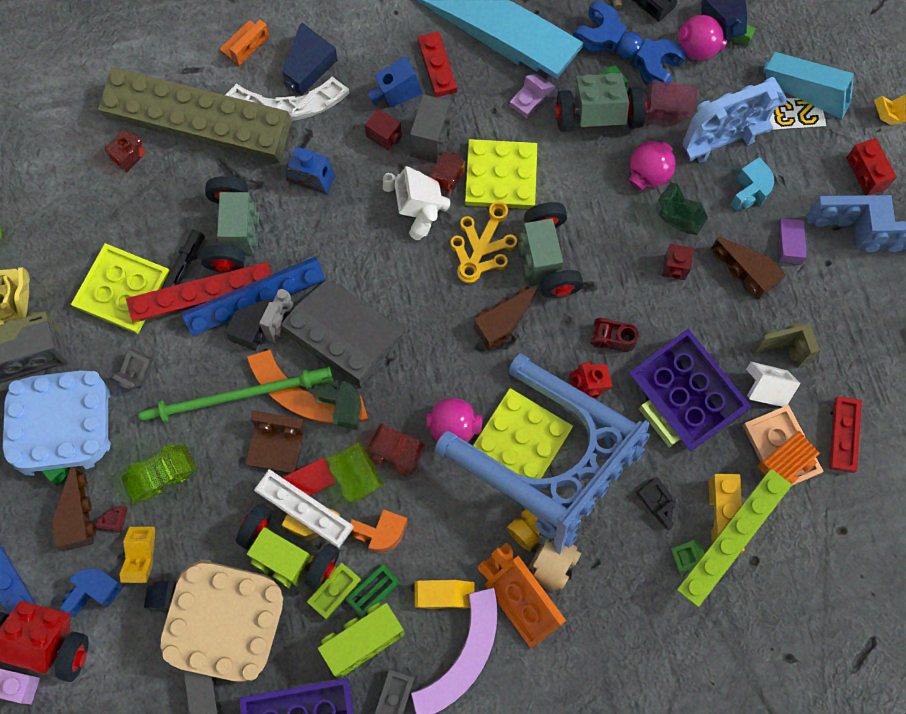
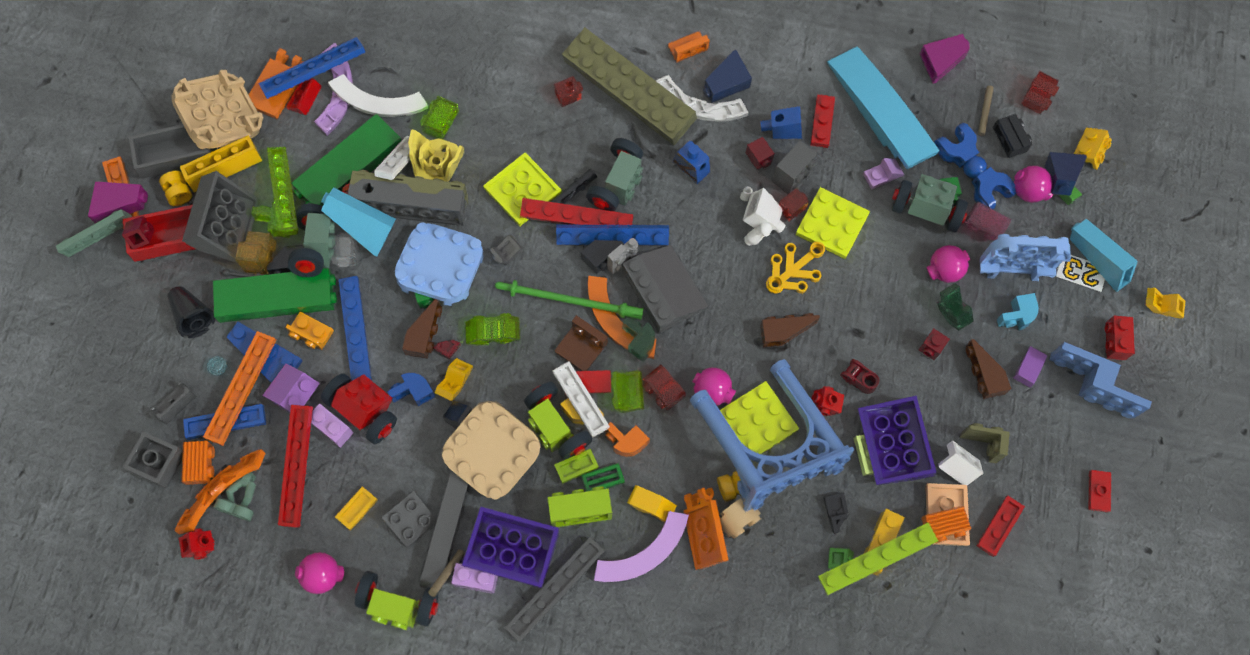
camera: 25 degrees right, 0 degrees up
(543, 253) = (834, 293): brick -> none

